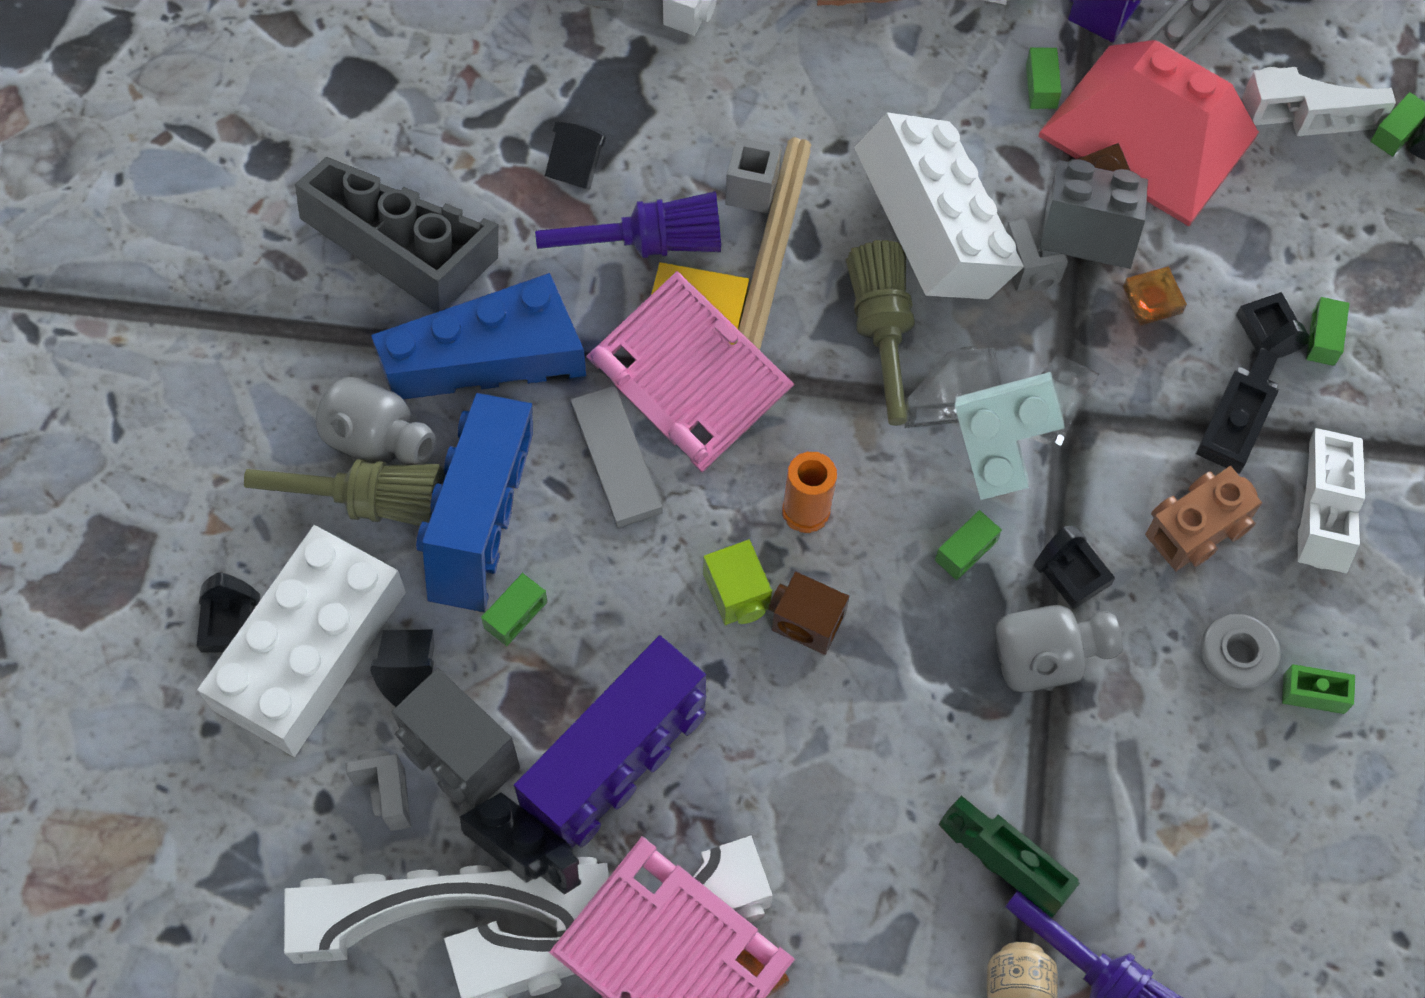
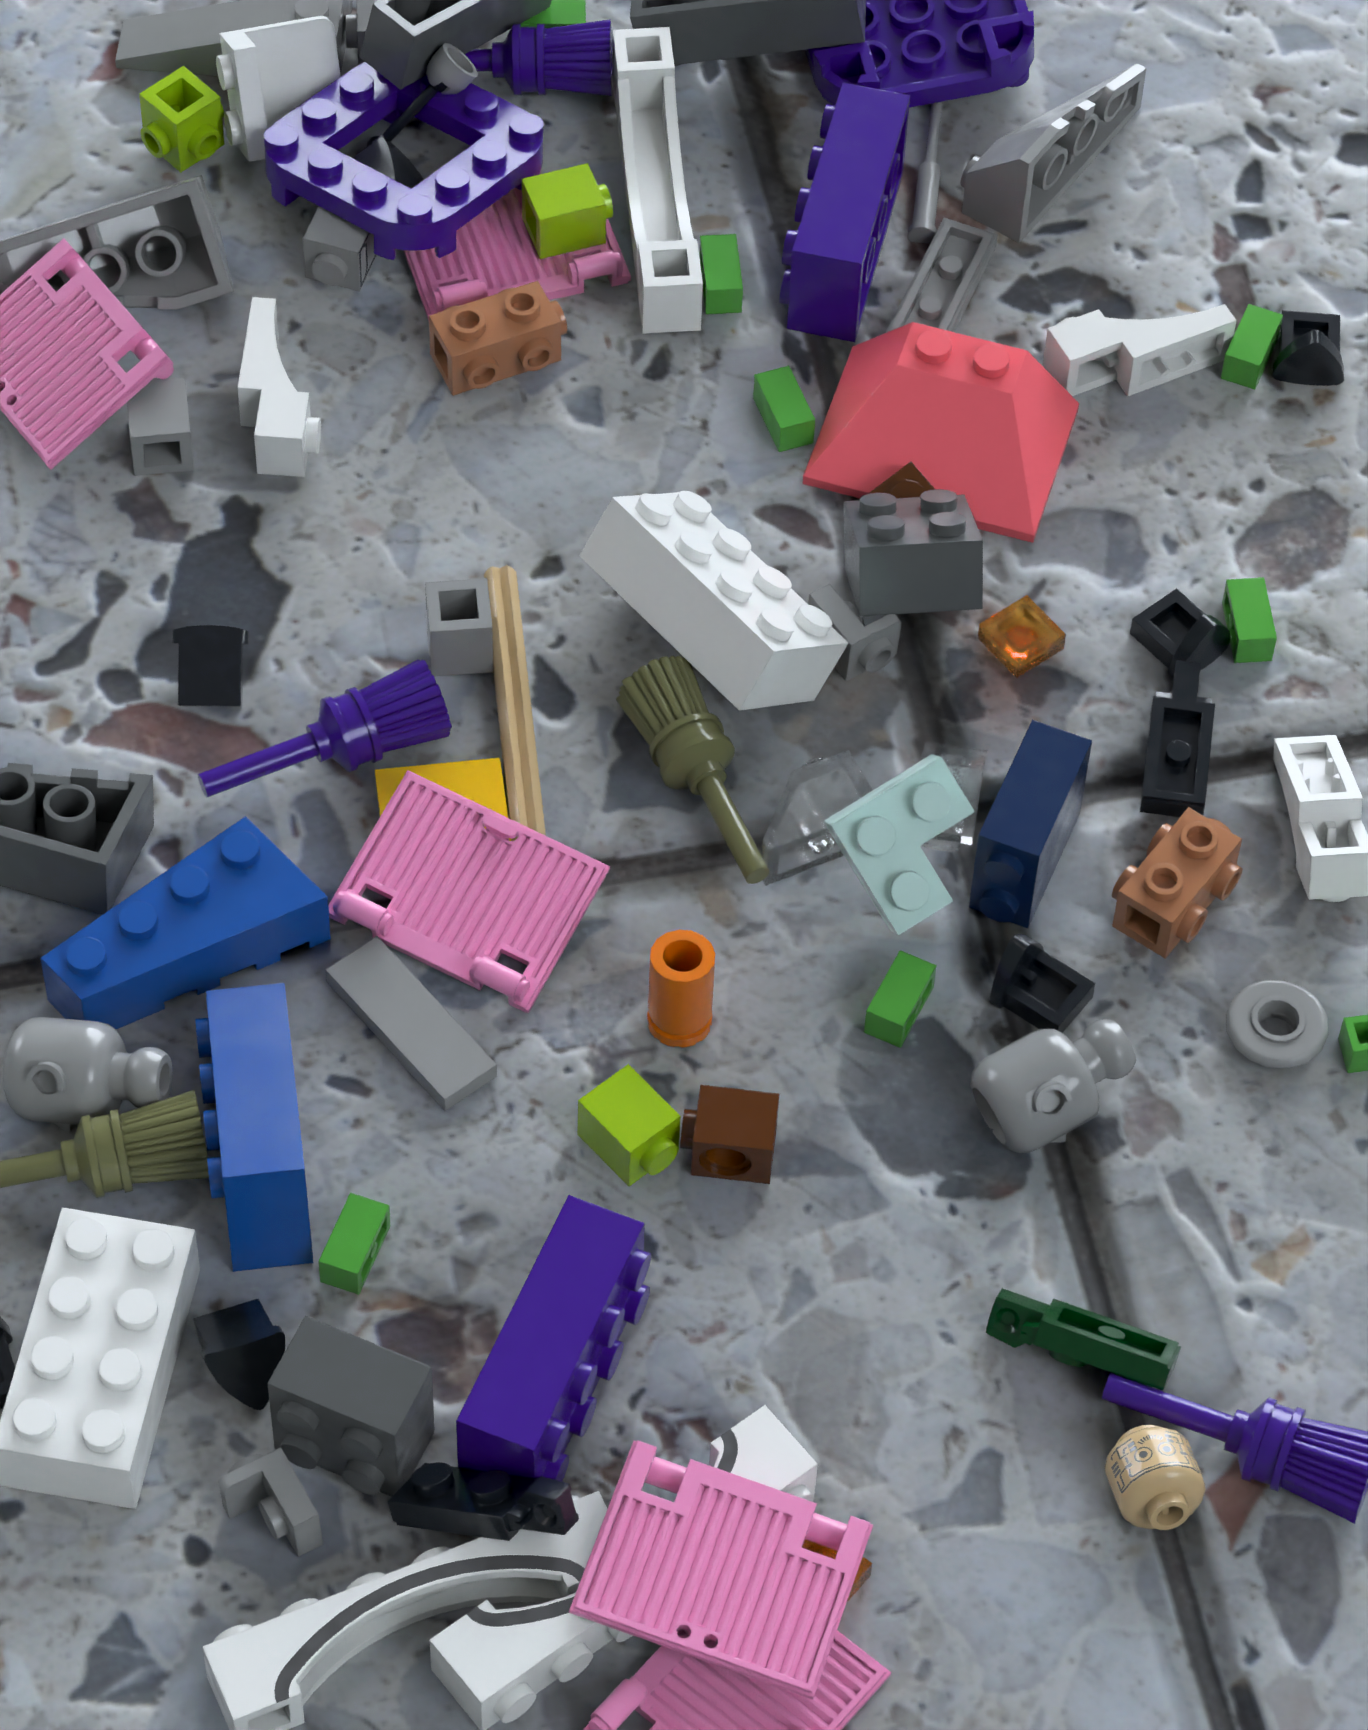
camera: 20 degrees left, 10 degrees down
(1107, 443) = (1029, 824): none -> dark blue brick

